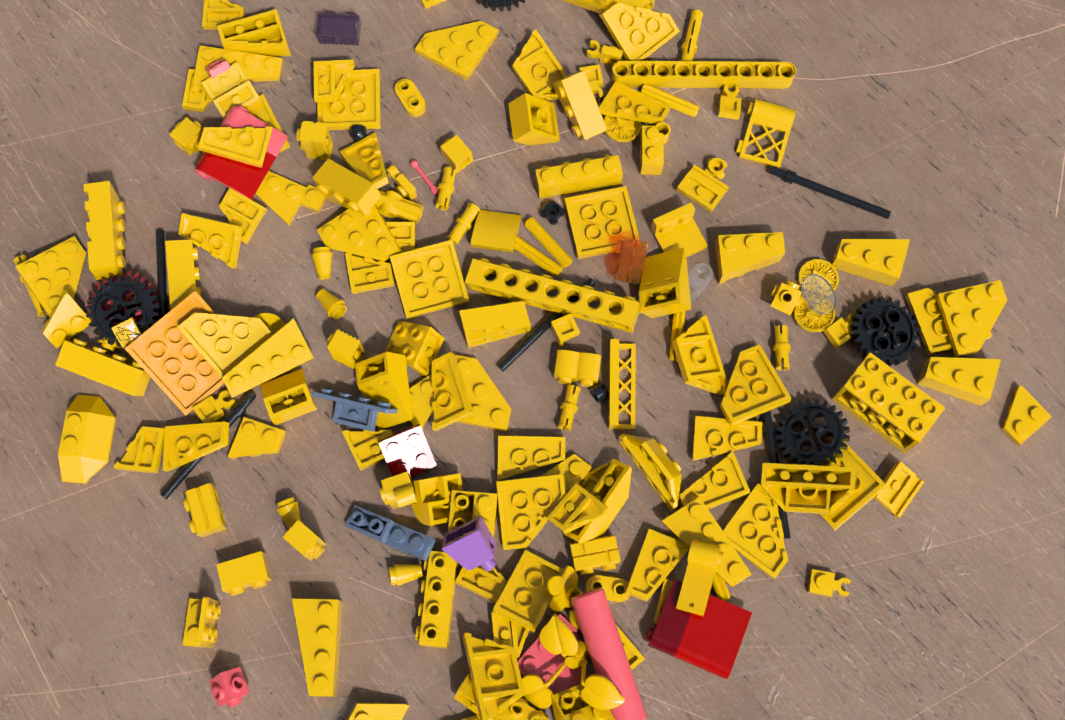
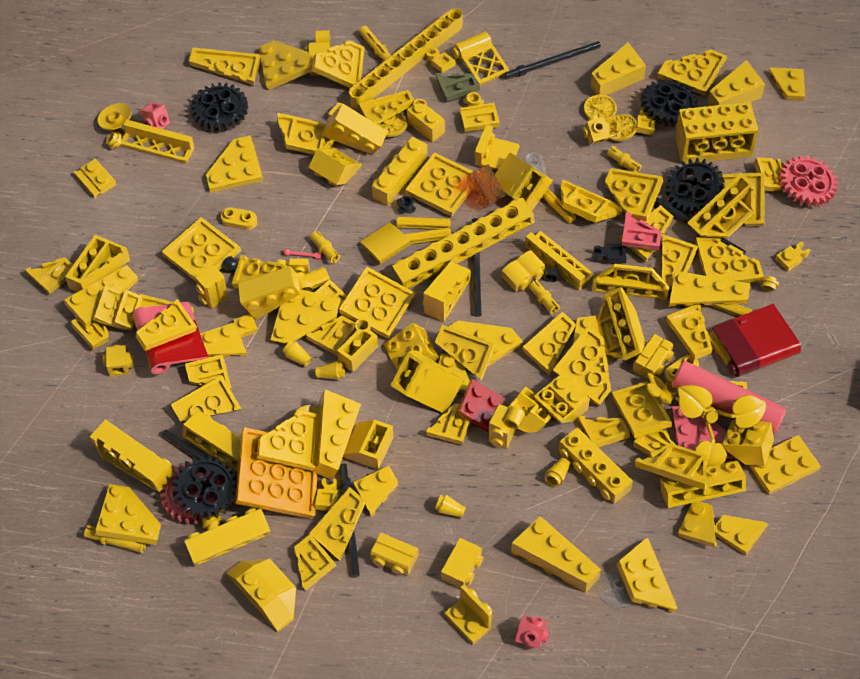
camera: 45 degrees left, 15 degrees down
(65, 321) = (167, 534): yellow wing -> none
(126, 332) = (225, 493): tile -> none
(217, 67) = (96, 299): coral tile -> none
(305, 541) = (480, 506): yellow brick -> none
(331, 78) = (177, 246): yellow wing -> none
(338, 28) = (145, 217): clear purple brick -> none
(345, 349) = (375, 382): yellow brick -> none
(355, 412) = (422, 411): sand blue bracket -> none
(370, 304) = (358, 346): none -> yellow hinge
(390, 533) = (525, 458): sand blue slope -> none
(456, 153) = (308, 221): yellow brick -> none
(463, 223) = (359, 255): yellow pin -> none
(471, 545) = (582, 409): medium lavender torso -> none
(564, 329) = (492, 257): yellow panel -> none
(577, 509) = (619, 336): yellow wing -> none
(607, 55) = (337, 93): yellow plate -> none
(671, 100) = (409, 85): yellow axle -> none
(672, 426) = (613, 253): none -> black plate
(699, 576) = (724, 308): yellow door -> none
(709, 432) = (640, 234): none -> coral wing
(717, 140) = (457, 85): none -> olive wing
(747, 252) = (545, 128): yellow wedge -> none
(773, 589) = (769, 283): none -> yellow plate
(818, 294) = (612, 113): clear dish -> none
(936, 515) = (808, 181): none -> coral gear
(971, 314) = (704, 53): yellow plate -> none

